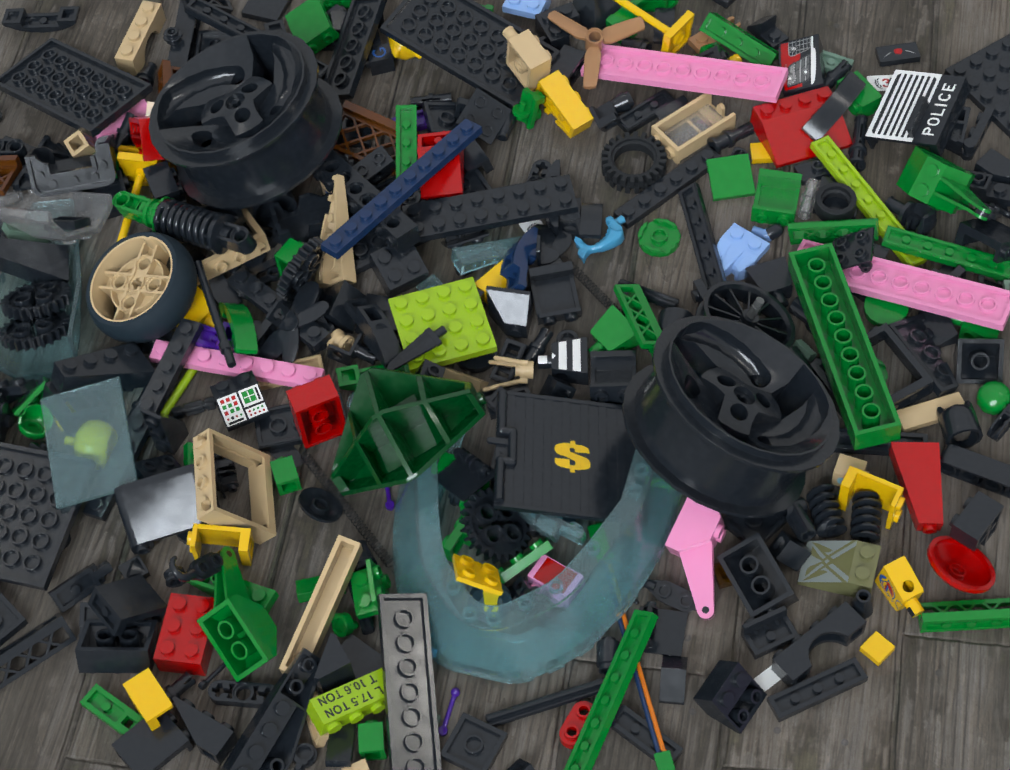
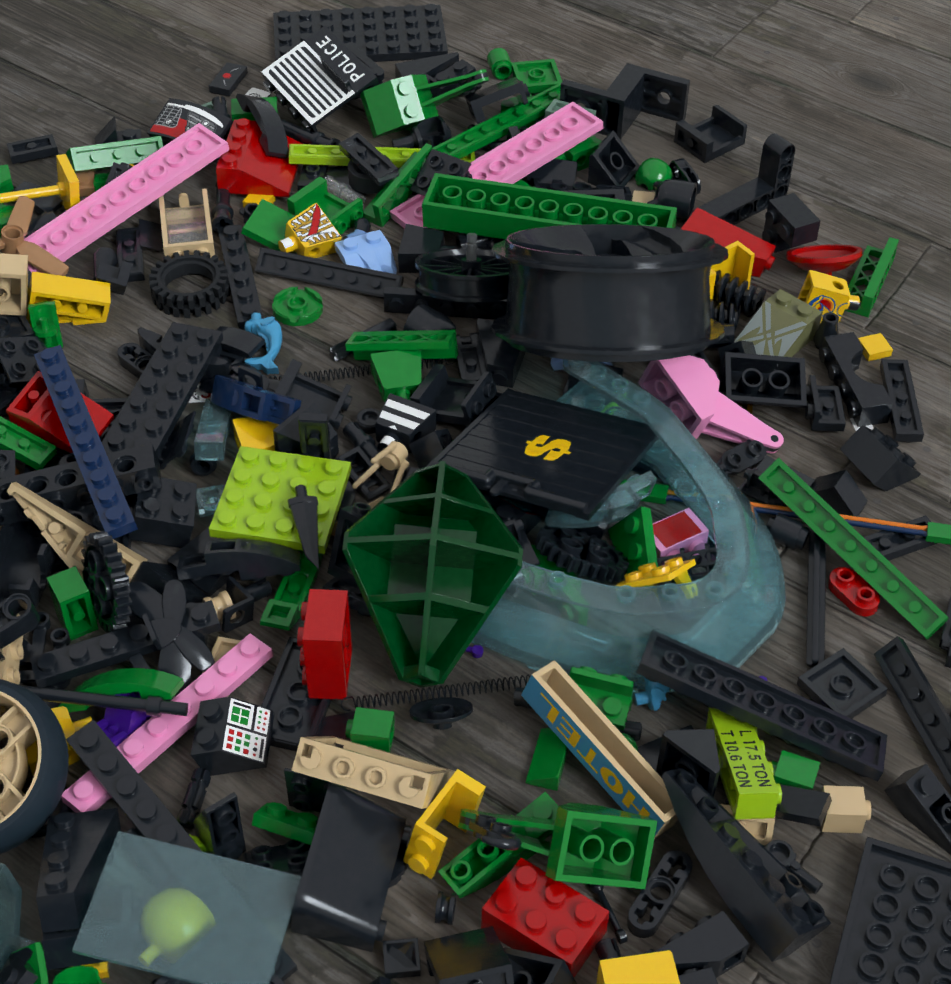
camera: 70 degrees left, 10 degrees down
(495, 318) = (314, 435): none -> black tile
(732, 202) = (310, 234): none -> torso
(832, 193) = (368, 159): none -> black plate

